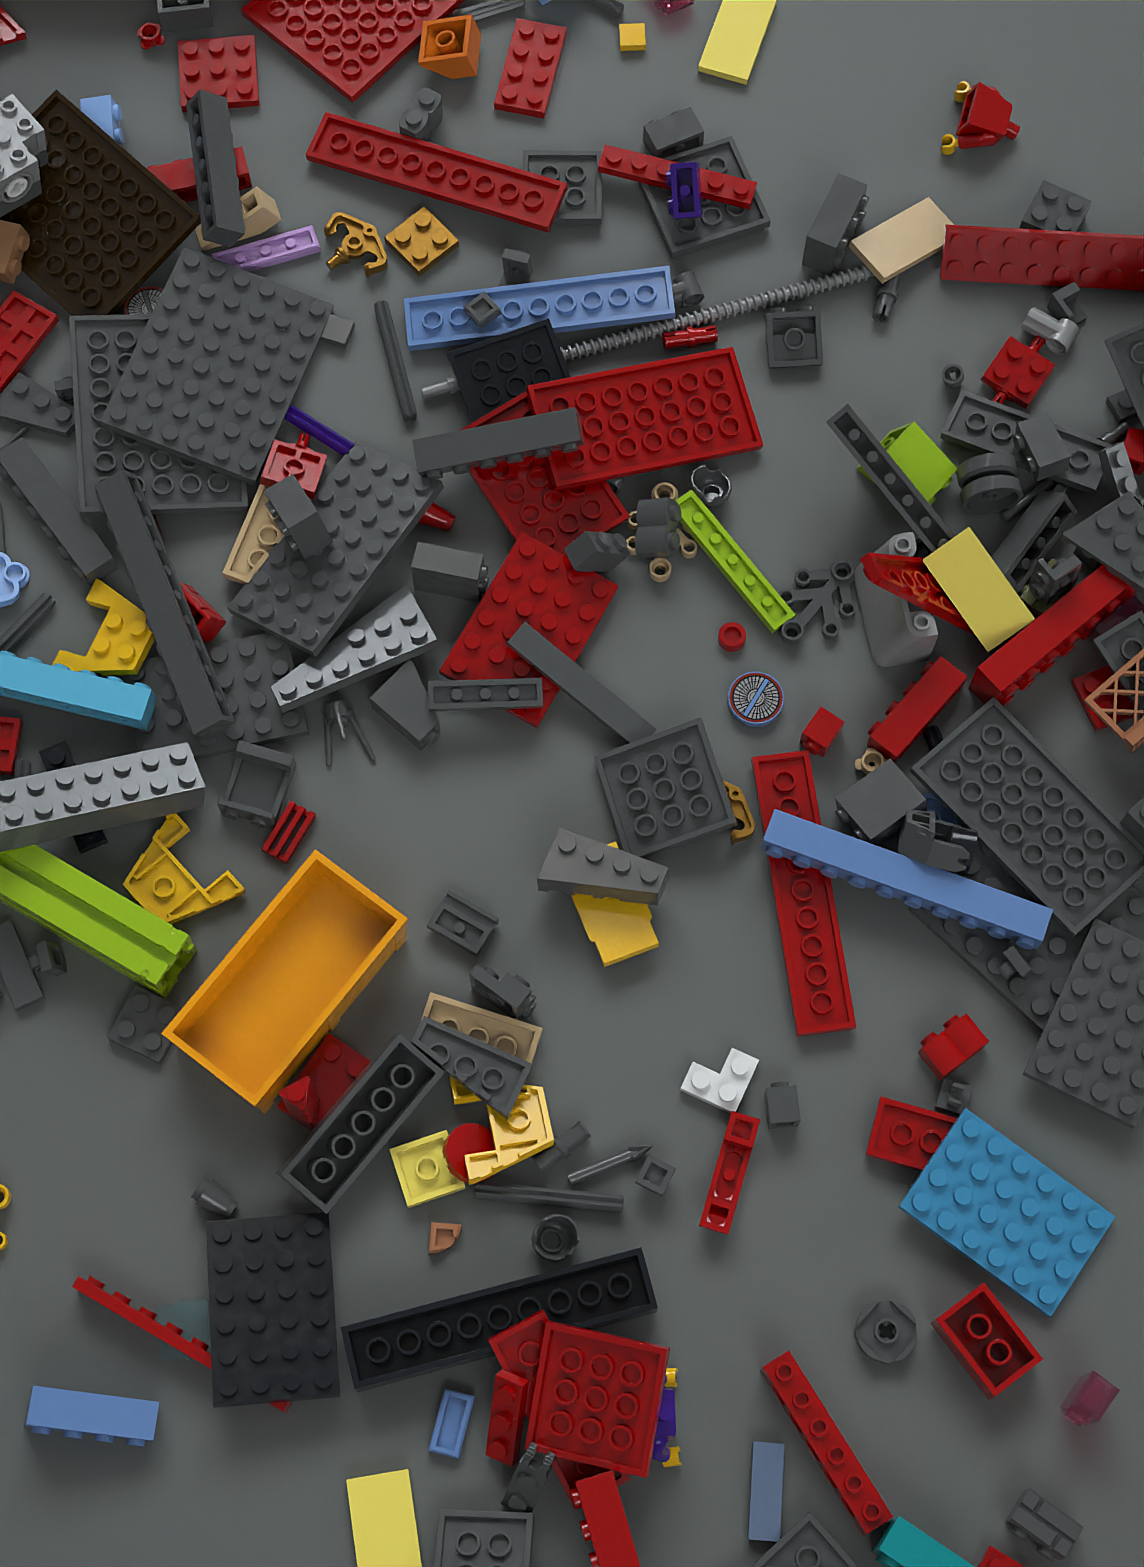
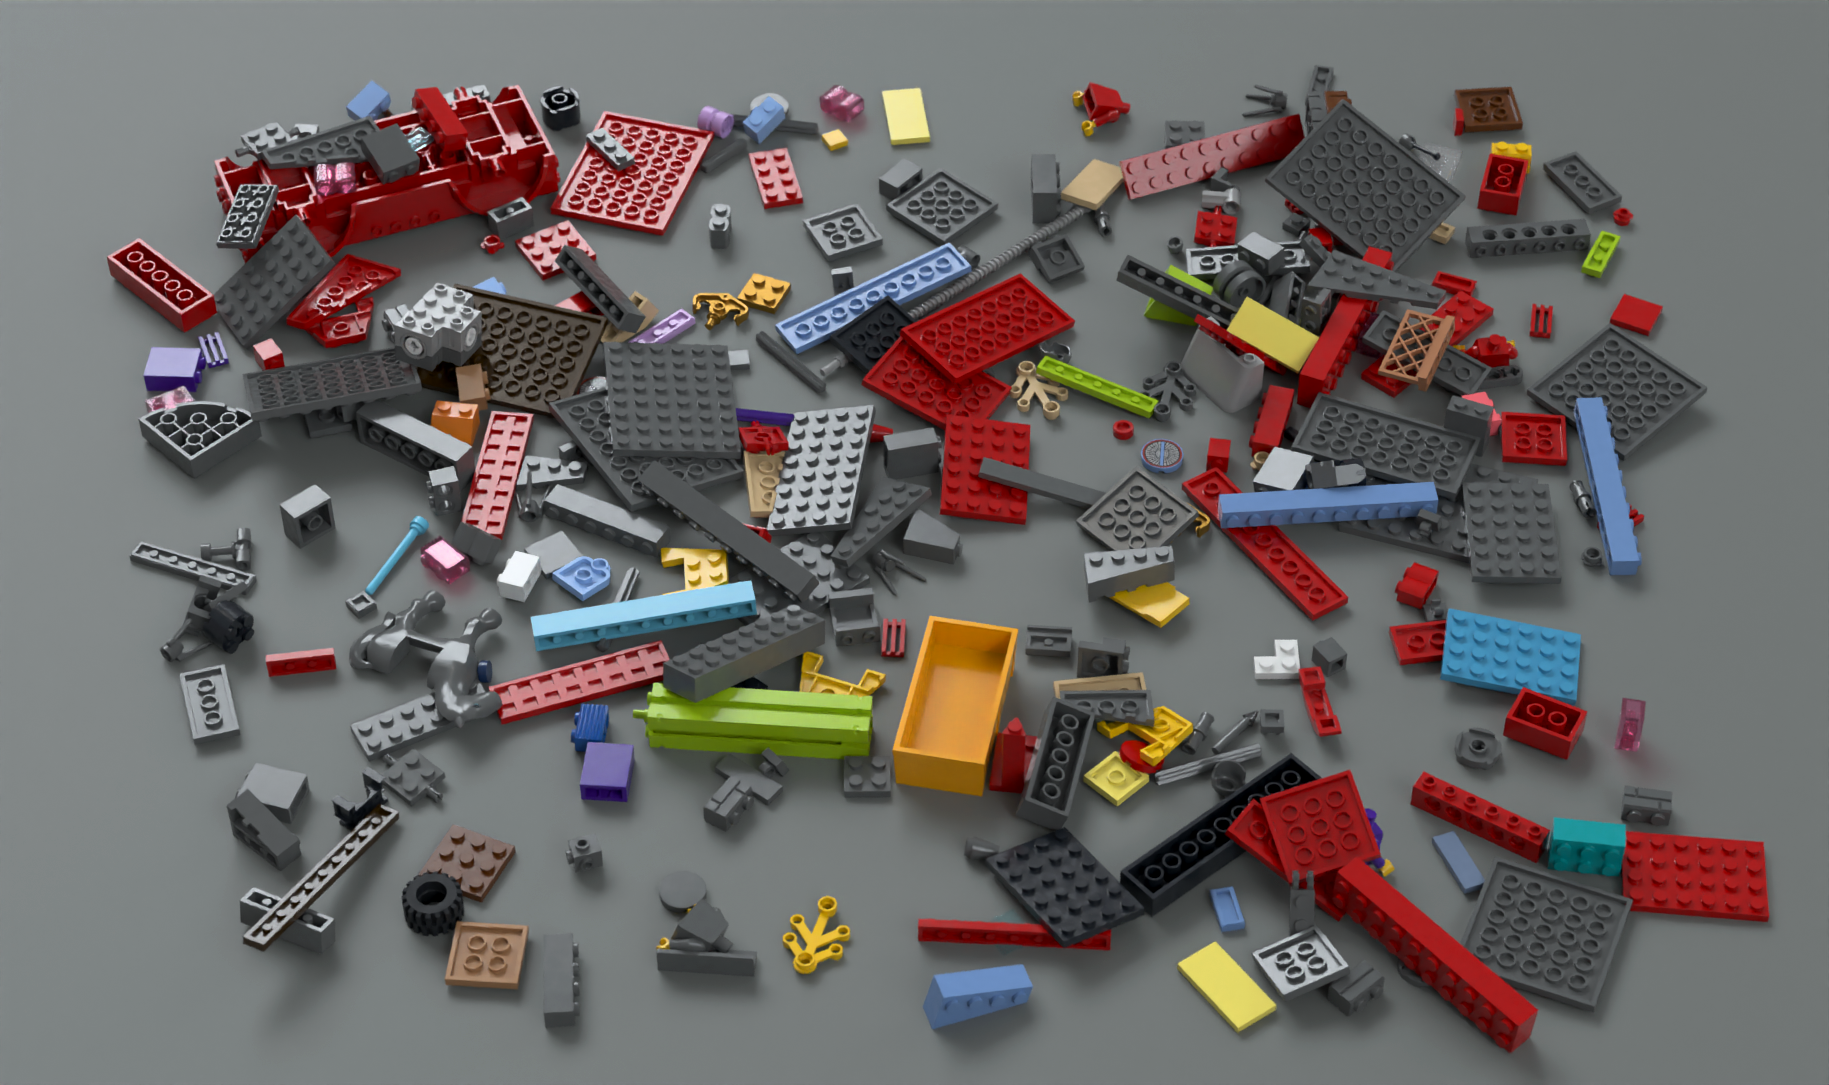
camera: 25 degrees left, 25 degrees down
(297, 517) = (790, 452): dark grey brick -> none
(437, 171) = (751, 249): red plate -> none
(443, 1236) = (1151, 812): nougat tile -> none
(450, 46) = (715, 180): orange slope -> none
(482, 310) = (836, 309): dark grey tile -> none
(485, 694) = (982, 507): dark grey plate -> none
(499, 442) = (903, 364): dark grey brick -> none
(506, 1417) = (1265, 877): red plate -> none
(597, 551) = (1005, 406): dark grey brick -> none
(653, 170) = (919, 199): red plate -> none
(657, 528) = (1037, 382): dark grey brick -> none
(686, 190) = (934, 197): dark purple brick -> none
(689, 337) = (985, 282): red pin -> none

